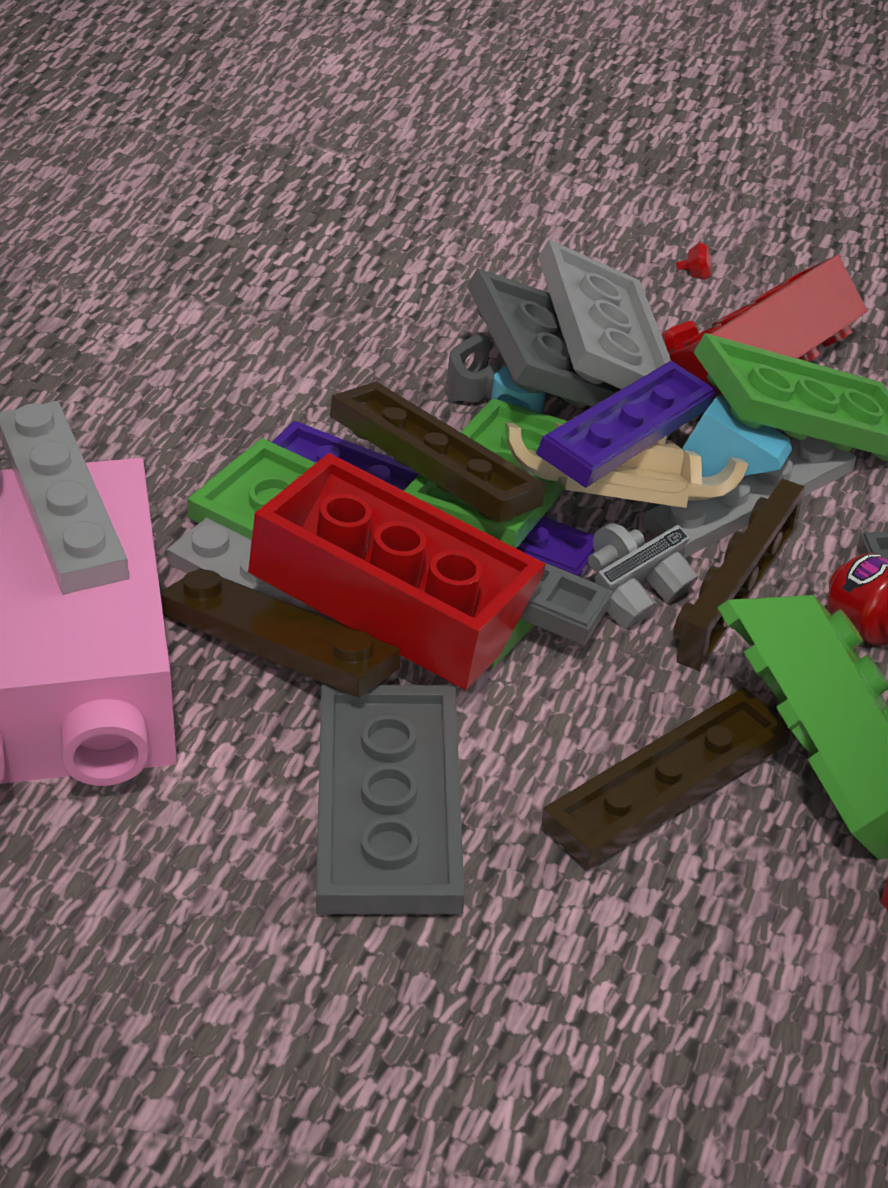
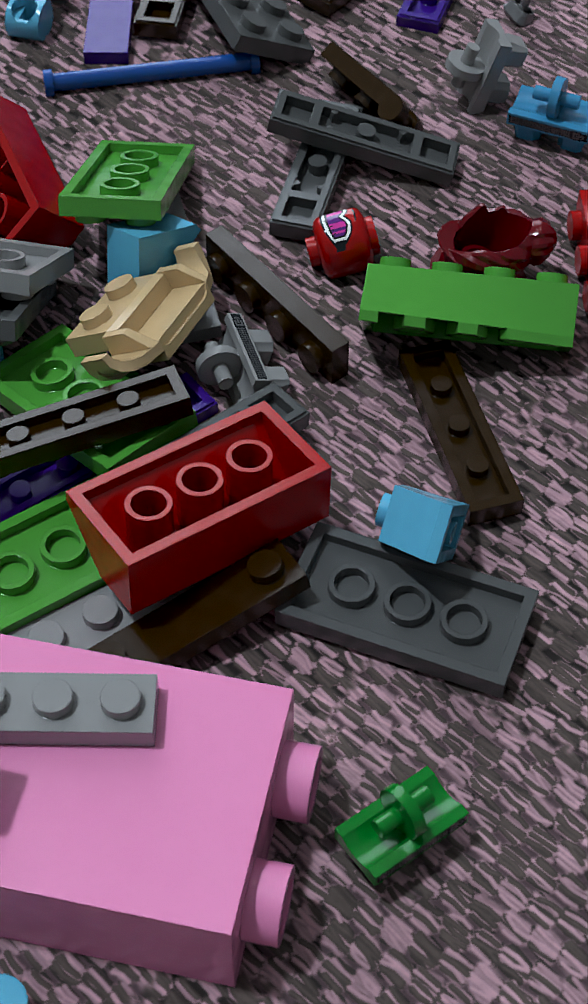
camera: 65 degrees left, 10 degrees up
(99, 849) = (400, 825): none -> green hips
(488, 764) = (421, 523): none -> medium azure slope
(626, 423) = (128, 288): dark purple tile -> none

